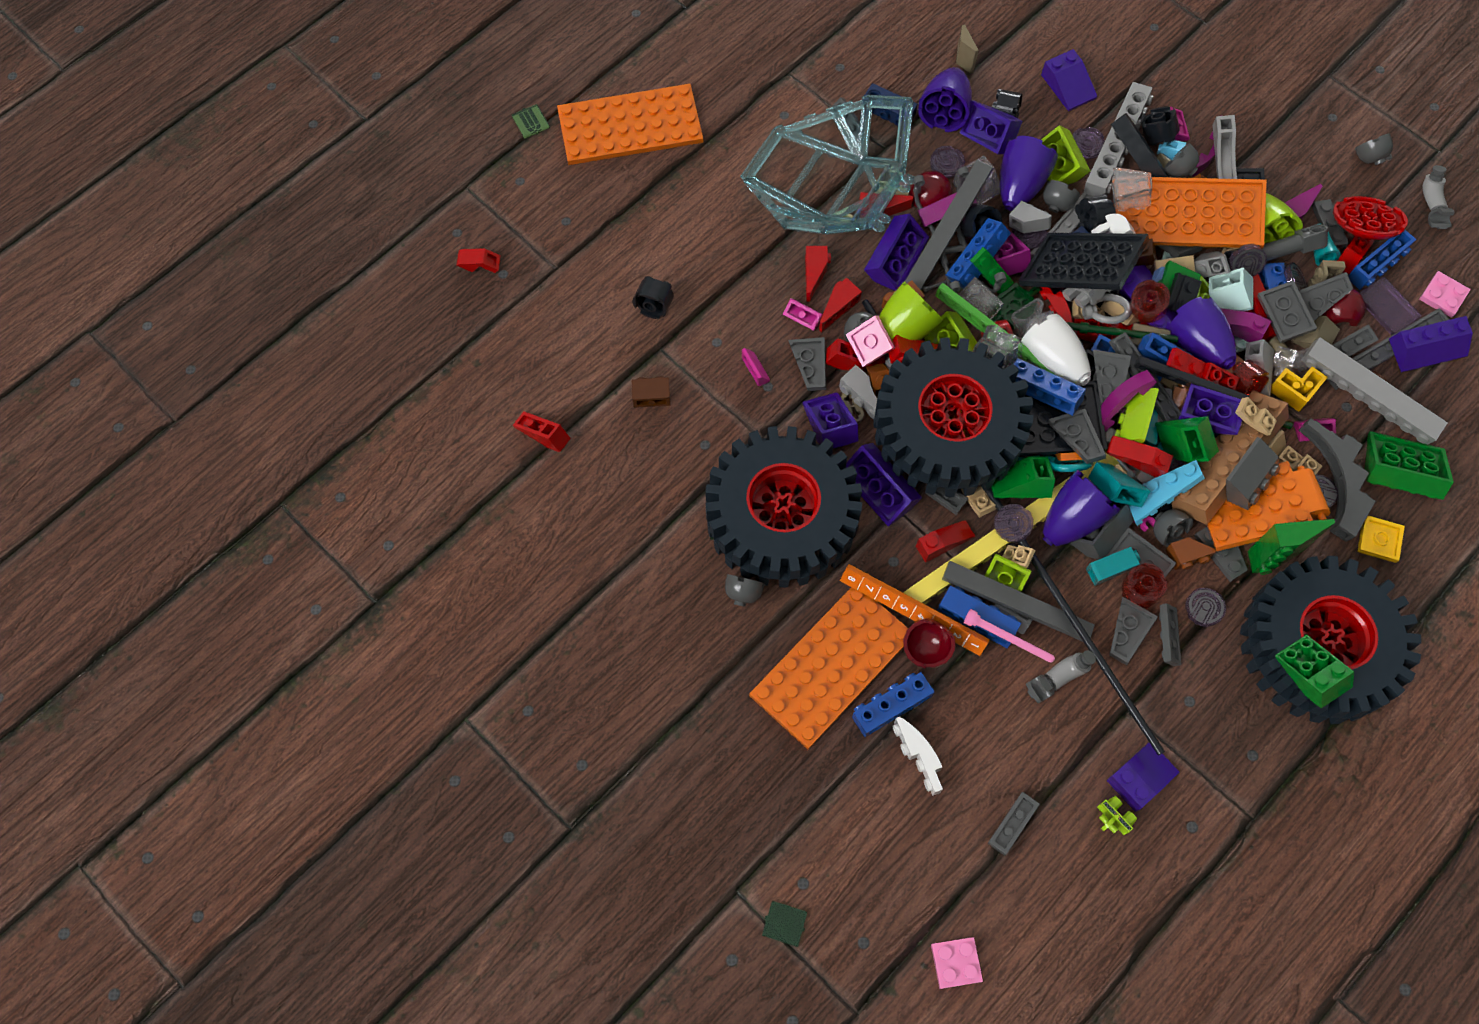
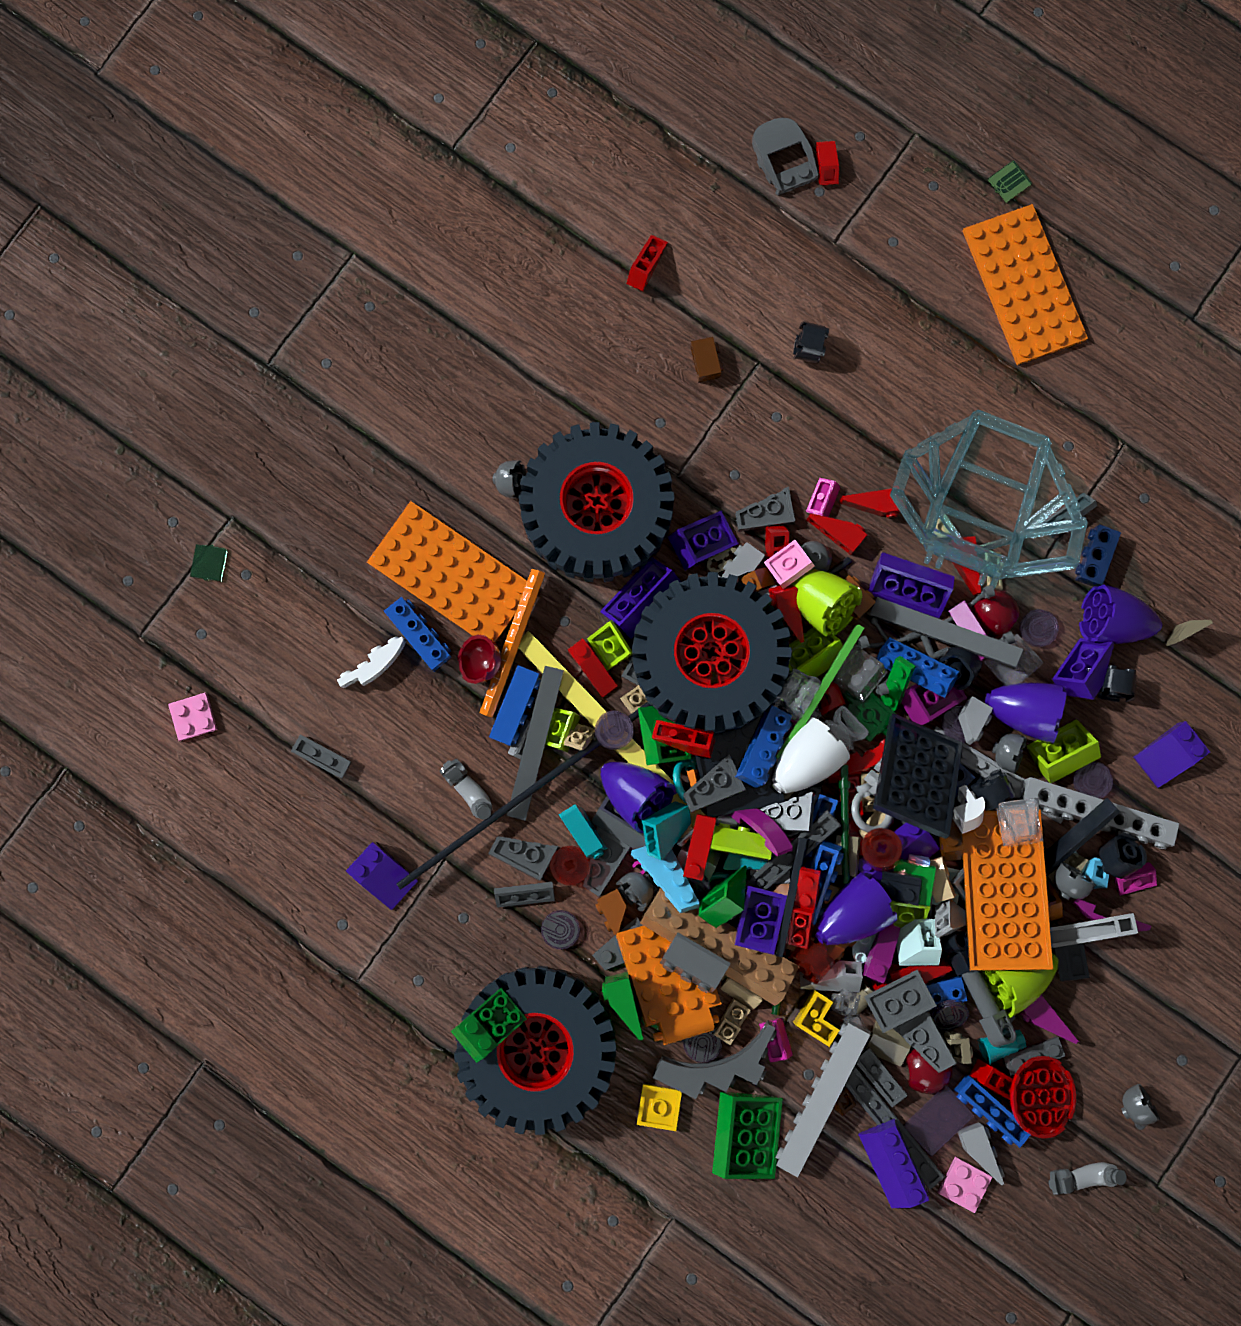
camera: 80 degrees right, 15 degrees up
(441, 300) = (776, 136): none -> dark grey slope
(755, 367) = (752, 458): dark pink slope -> none
(924, 517) = (610, 645): none -> lime slope
(974, 619) = (504, 698): bright pink piece -> none
(1032, 453) = (688, 740): none -> red slope
(1113, 819) = (334, 857): lime hips -> none
(1250, 257) = (954, 956): clear purple tile -> none
(1257, 418) = (756, 963): tan slope -> none
(1409, 277) = (976, 1143): none -> light grey slope

